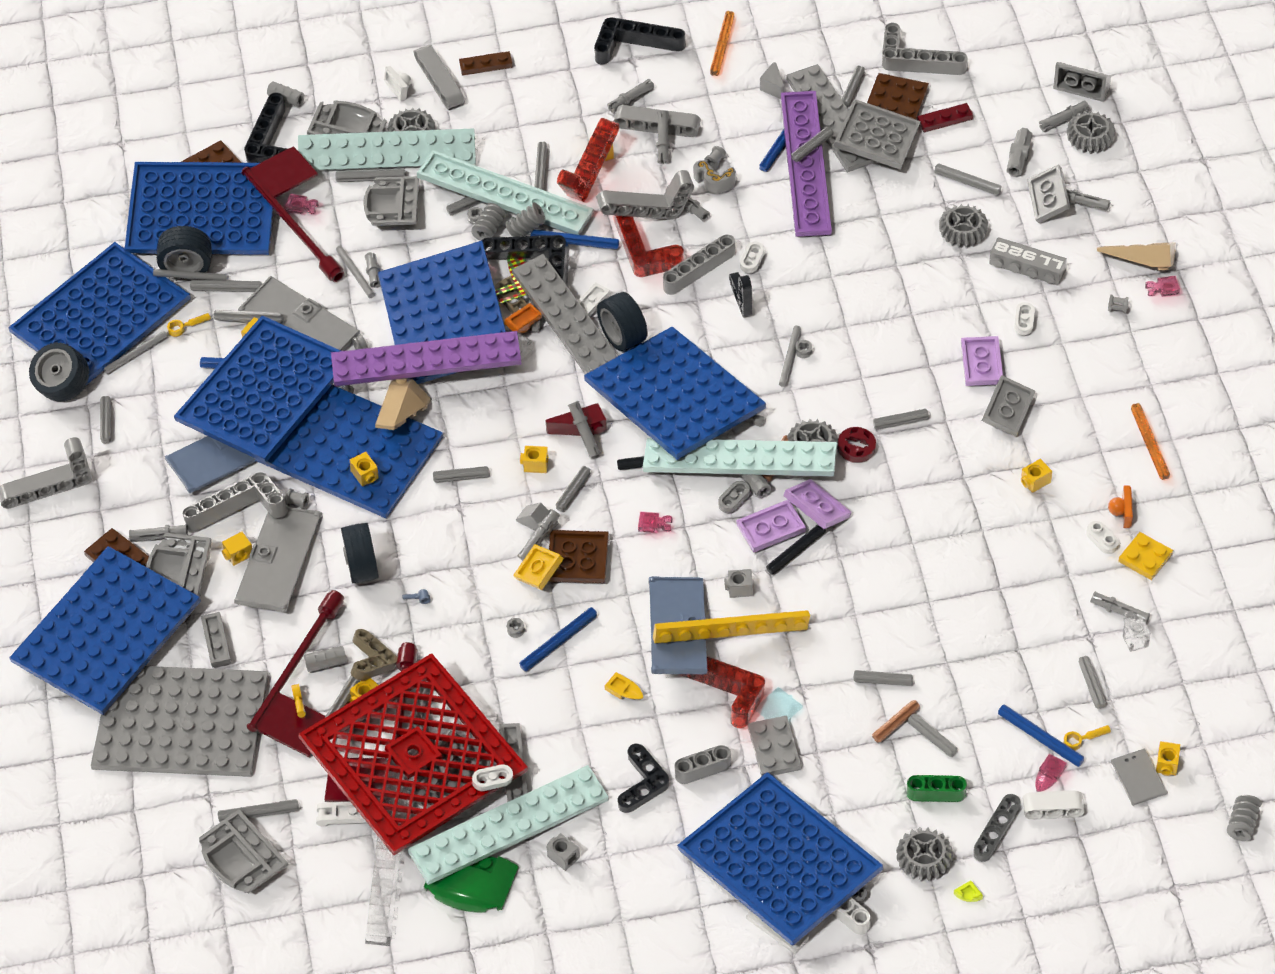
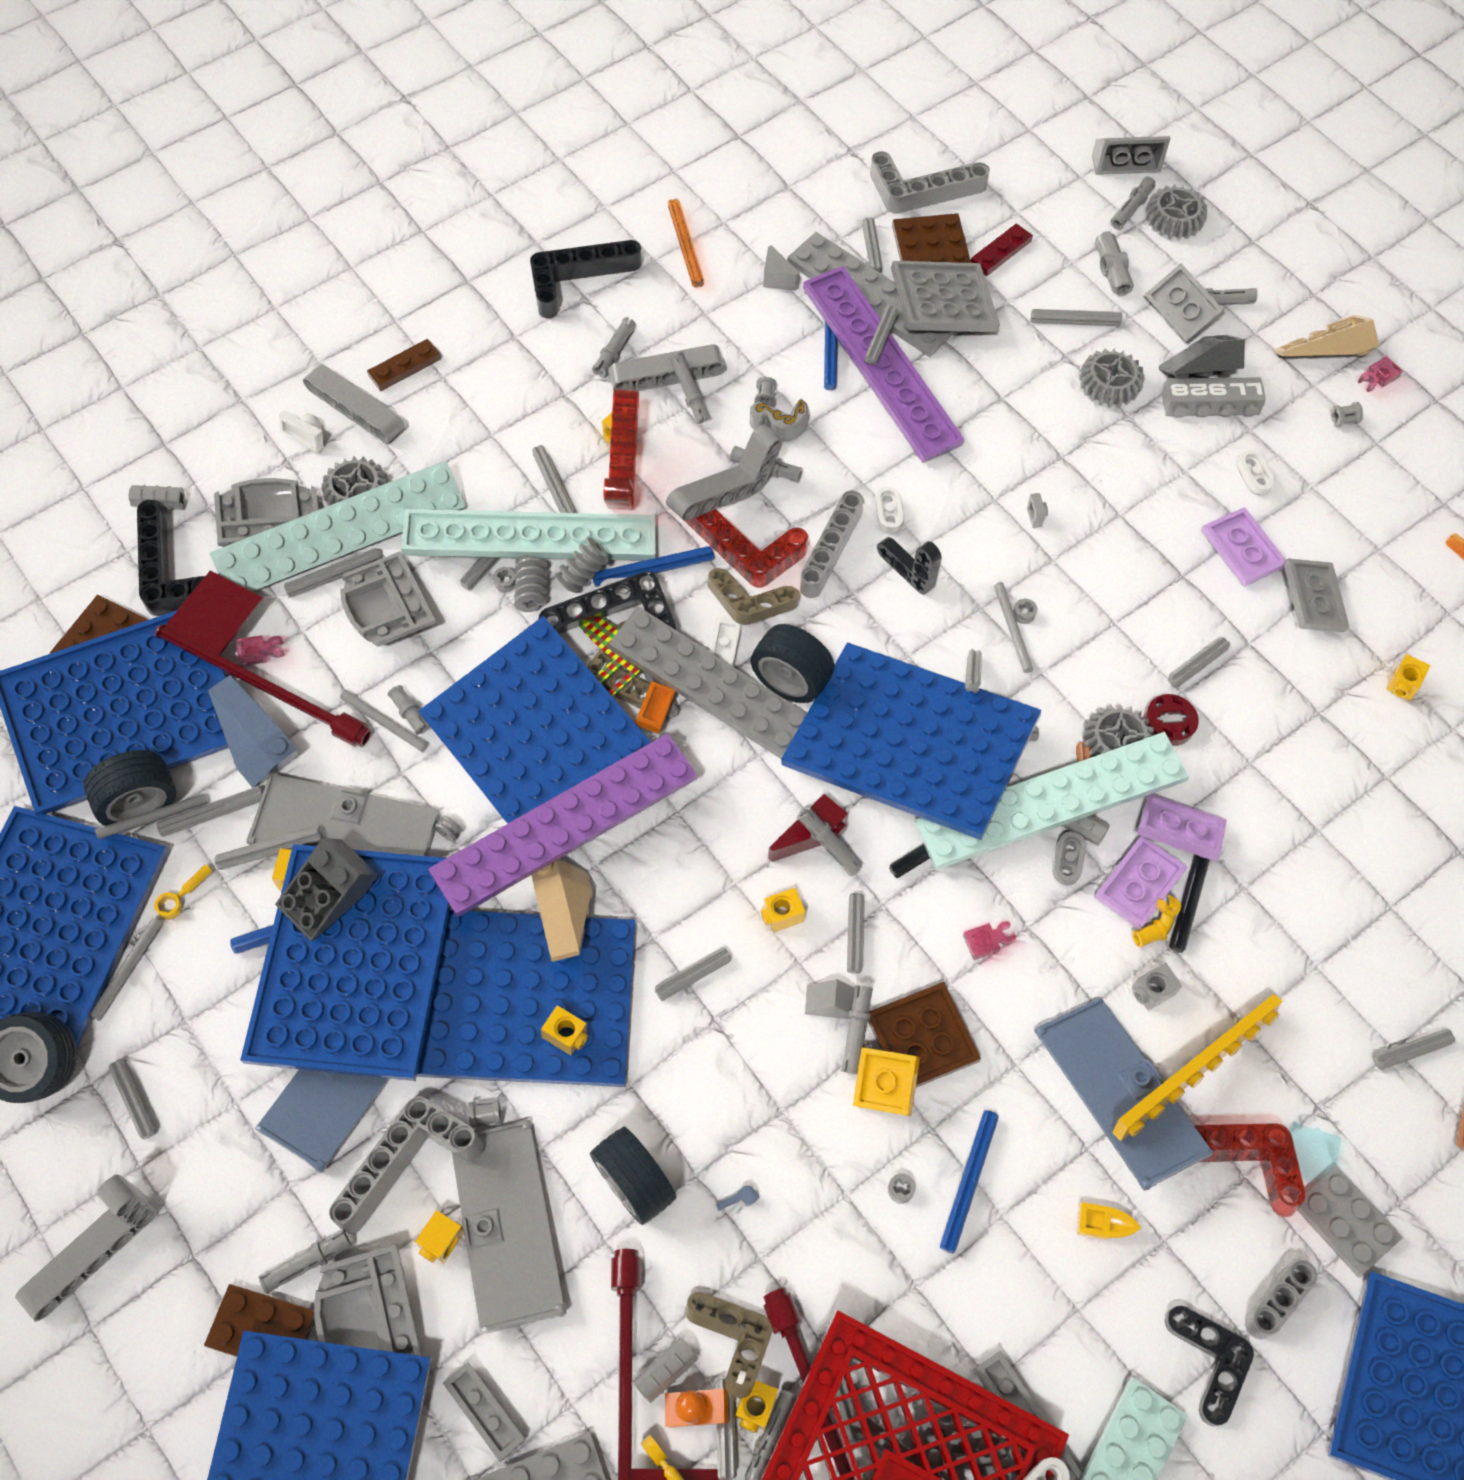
camera: 30 degrees left, 10 degrees up
(267, 341) = (325, 887): none -> dark grey slope
(270, 249) = (250, 733): none -> sand blue wedge
(331, 681) = (696, 1408): none -> orange tile
(617, 283) = (748, 609): none -> dark tan beam
(739, 367) = (973, 671): none -> light grey axle
(764, 555) = (1161, 927): none -> yellow piece
(852, 290) = (1036, 510): none -> light grey plate
(1043, 232) = (1207, 355): none -> dark grey slope

